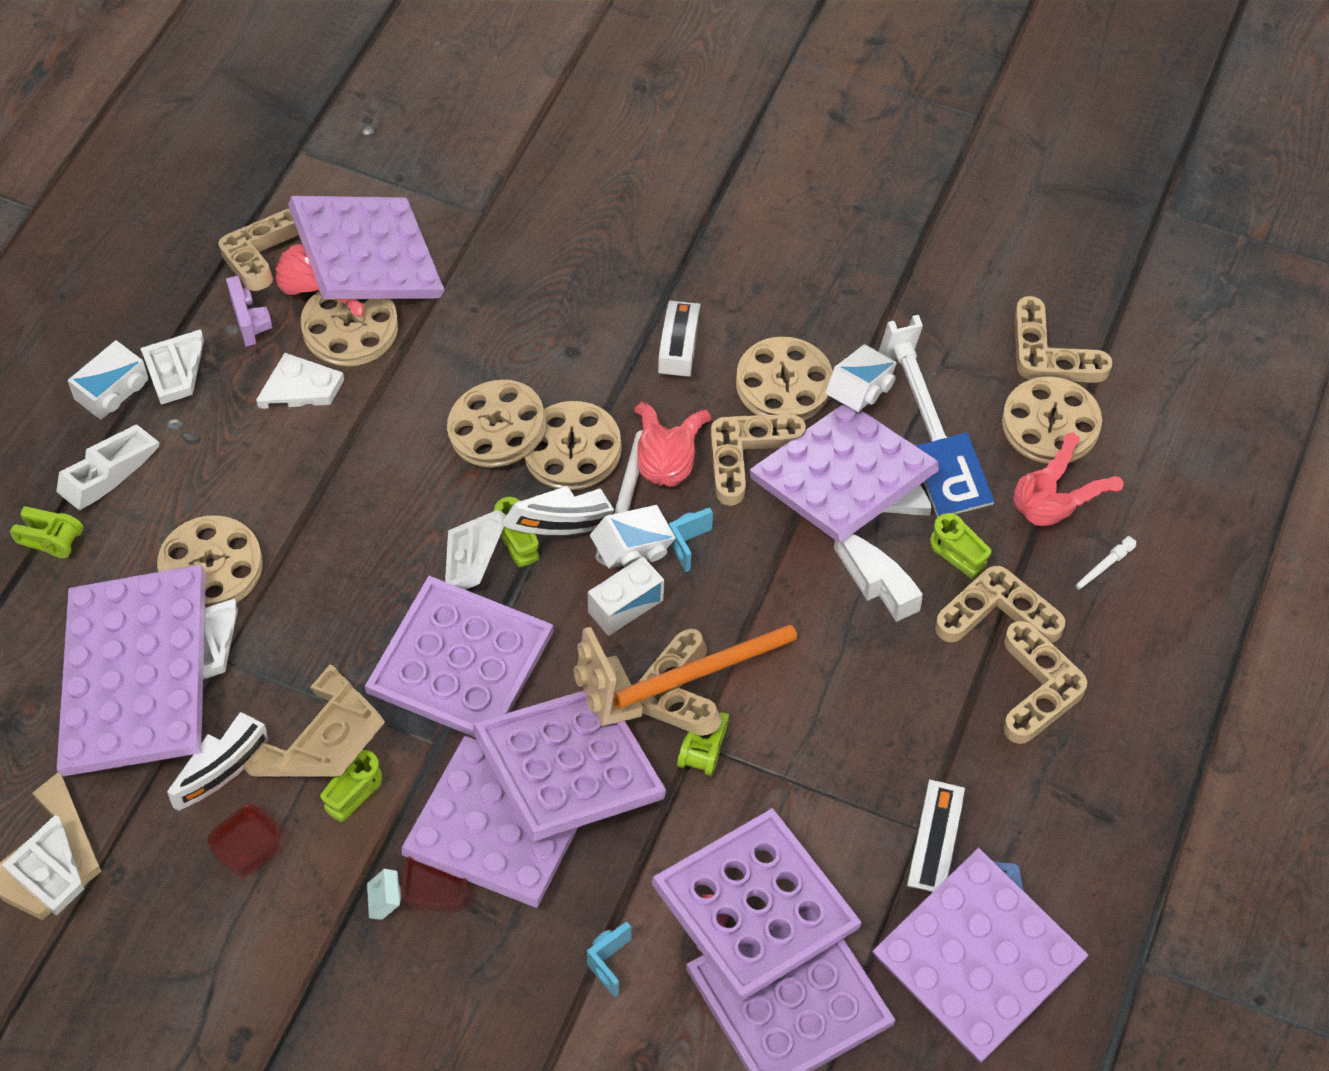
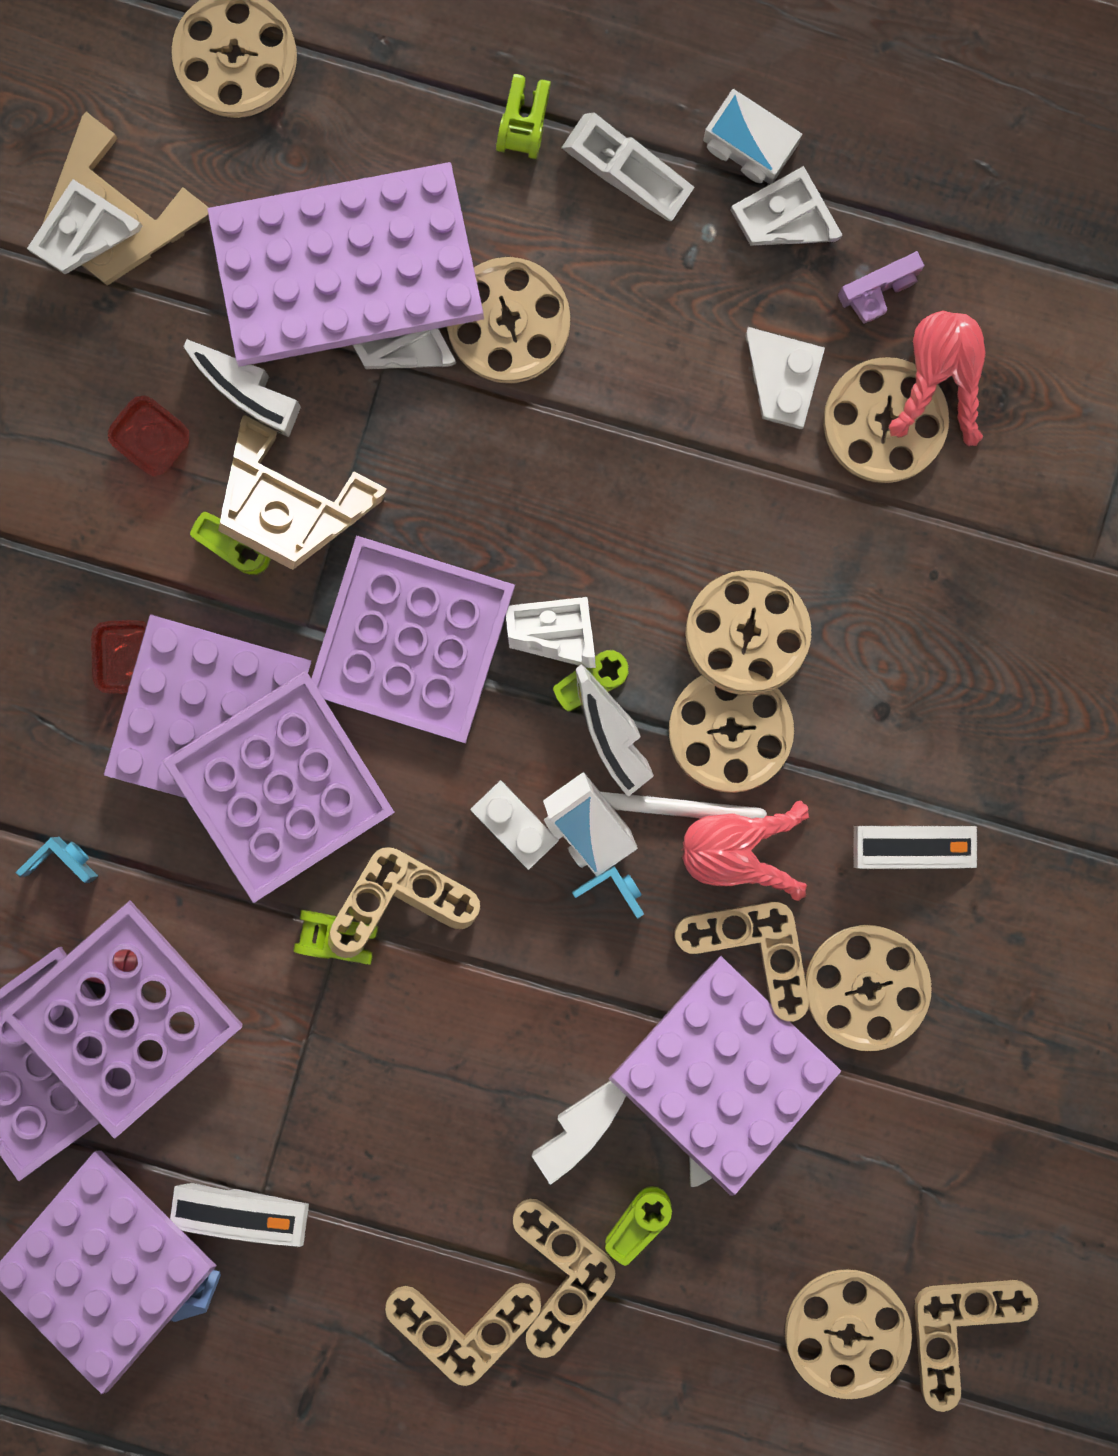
camera: 85 degrees right, 30 degrees up
(249, 241) = (981, 265): tan beam -> none
(365, 247) = (993, 420): lavender plate -> none
(383, 894) = (102, 603): light aqua plate -> none
(600, 680) = (382, 819): tan bracket -> none
(704, 666) = (423, 930): orange piece -> none
(861, 378) = (866, 1088): white brick -> none
(960, 479) = (768, 1203): piece -> none
(1037, 495) = (709, 1332): coral hair -> none
(1116, 554) = (659, 1418): white piece -> none

